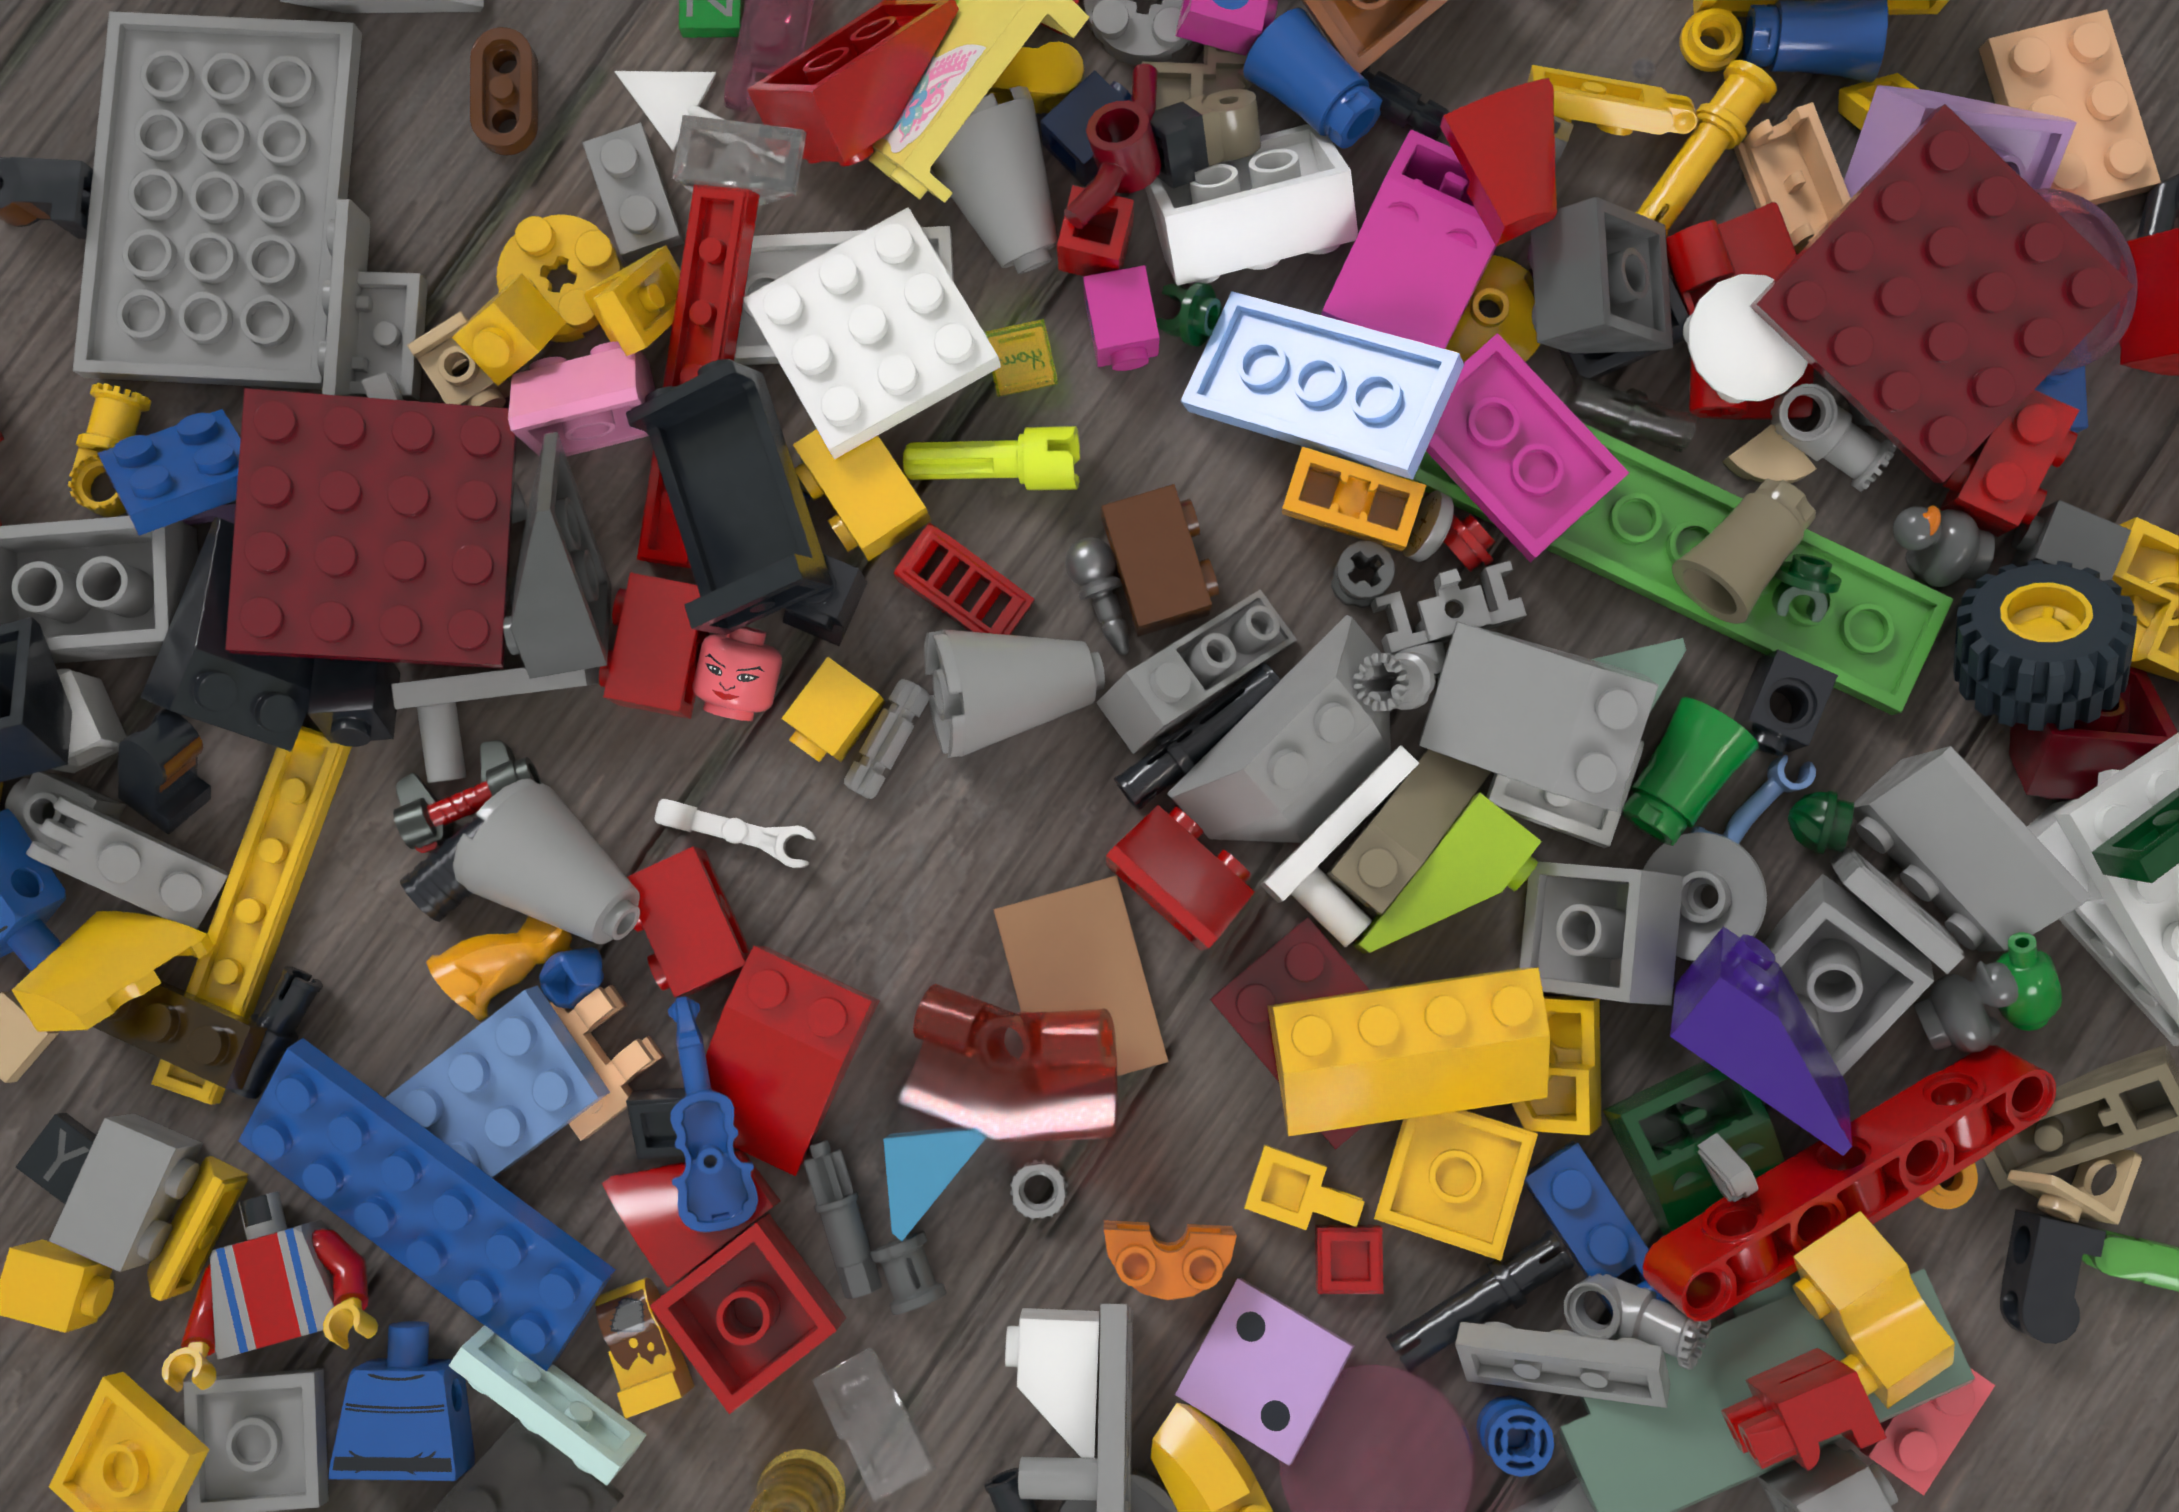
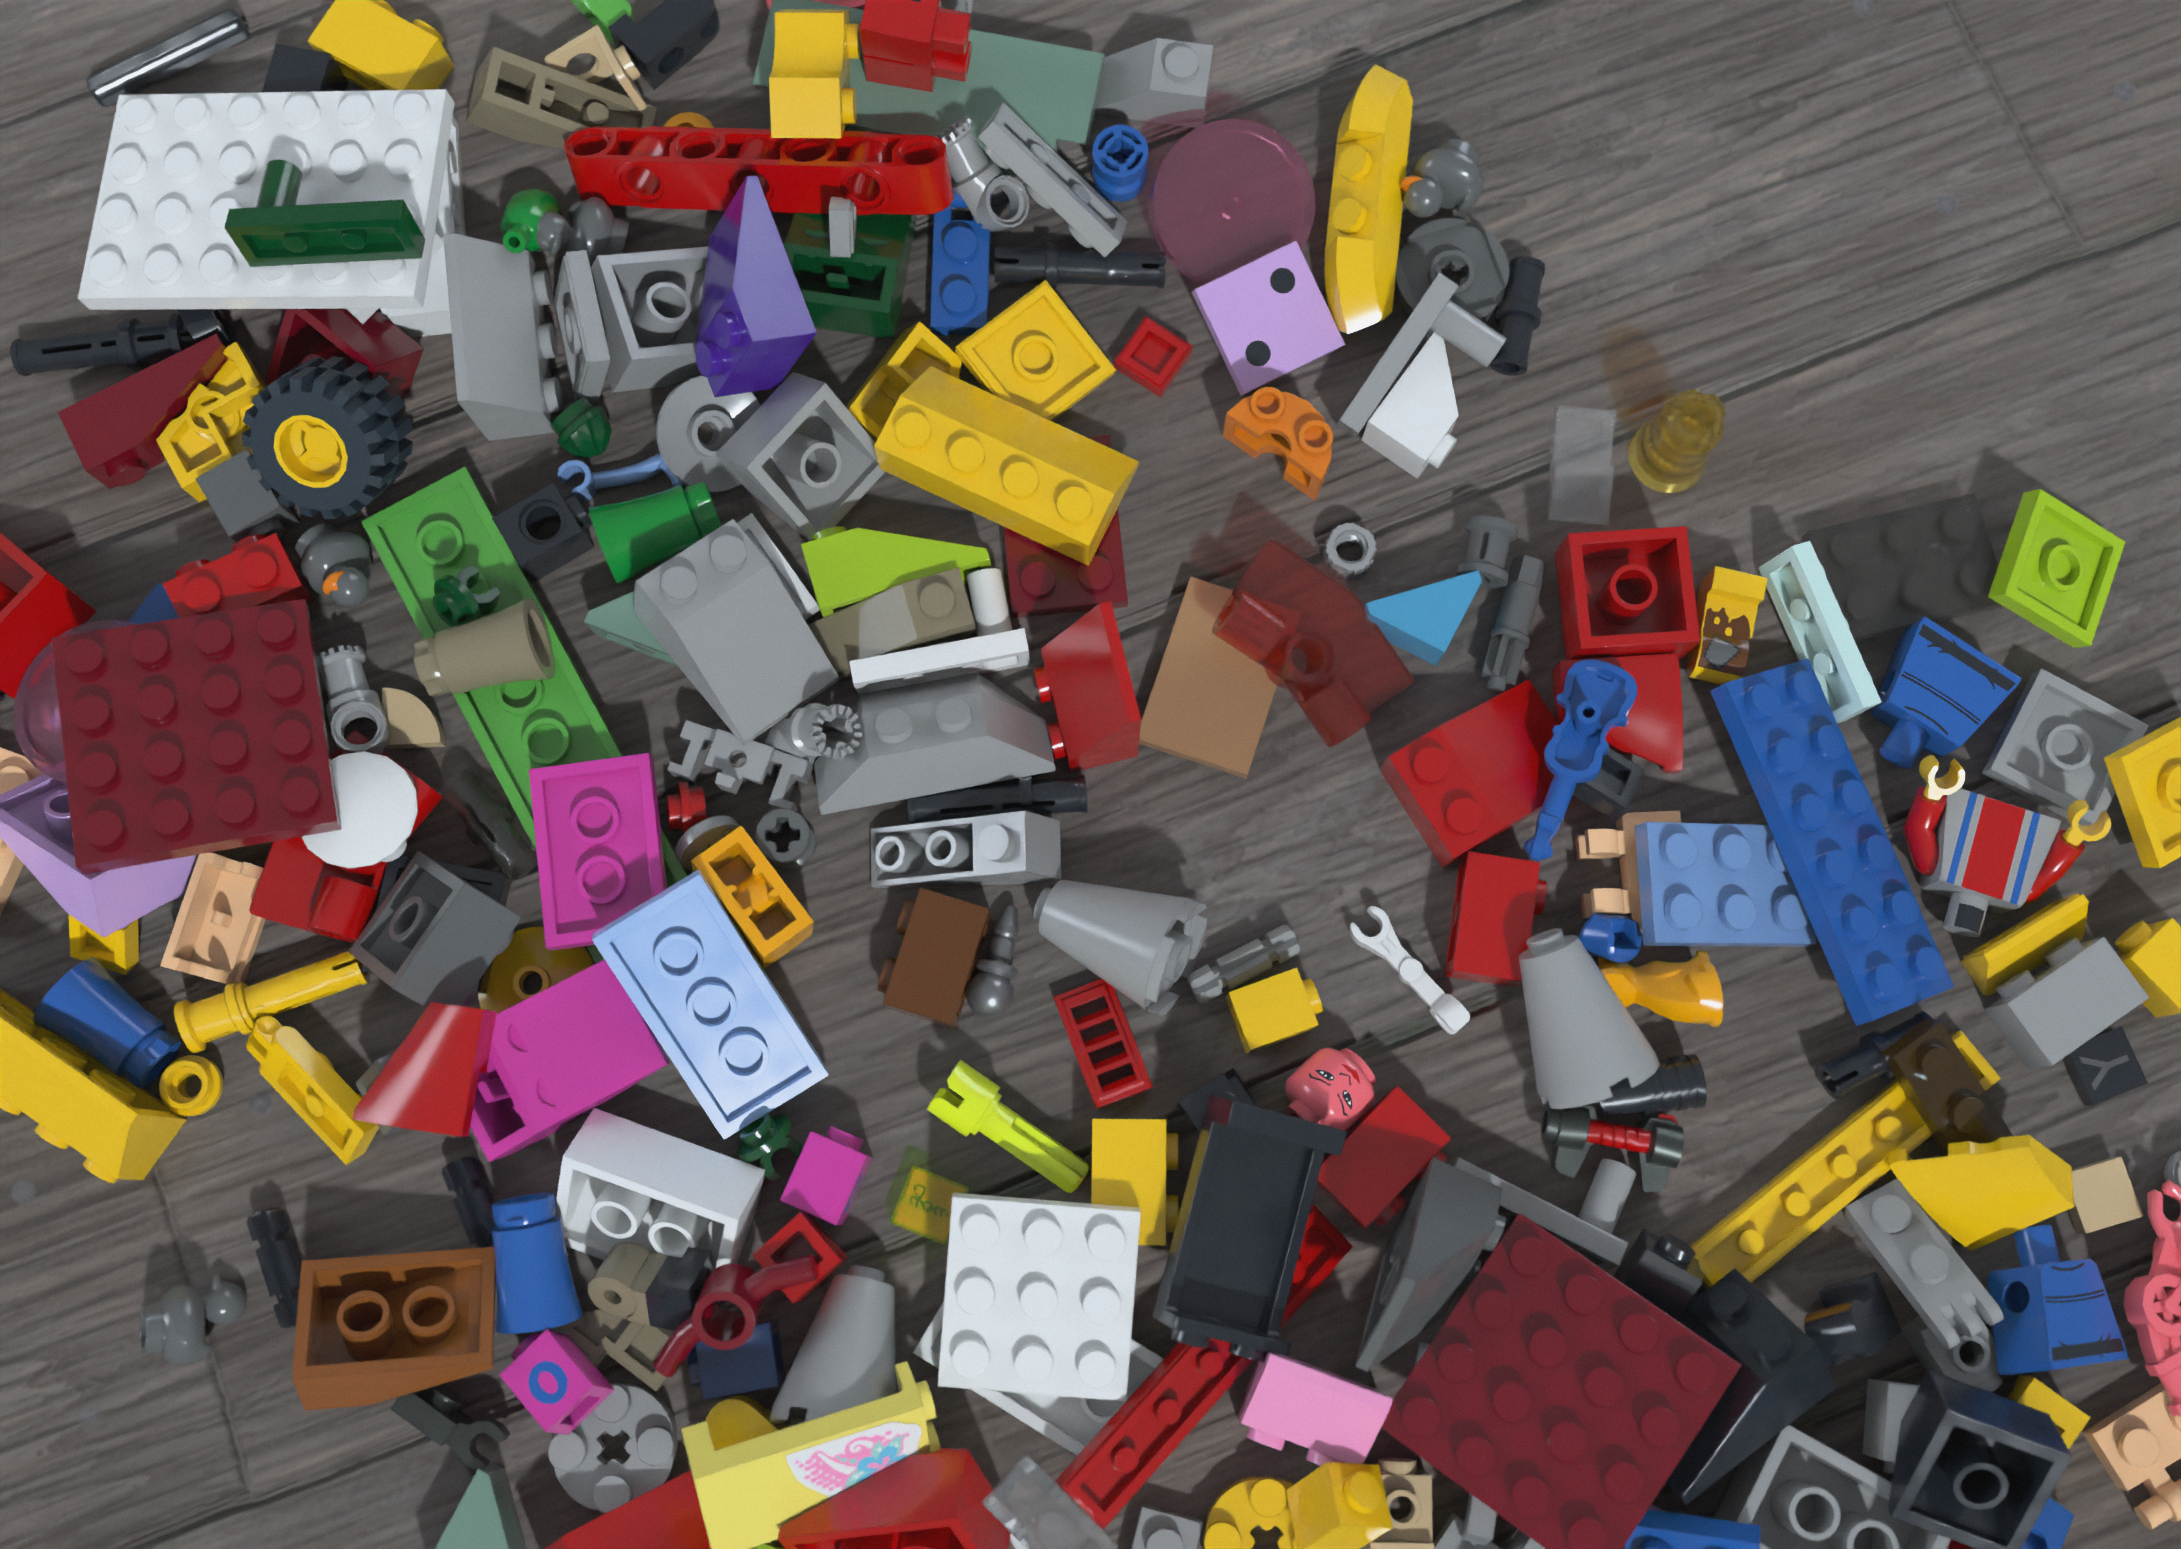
camera: 150 degrees left, 5 degrees down
(637, 300) = (1214, 1462): yellow slope -> none
(1291, 1189) = (1160, 427): yellow plate -> none

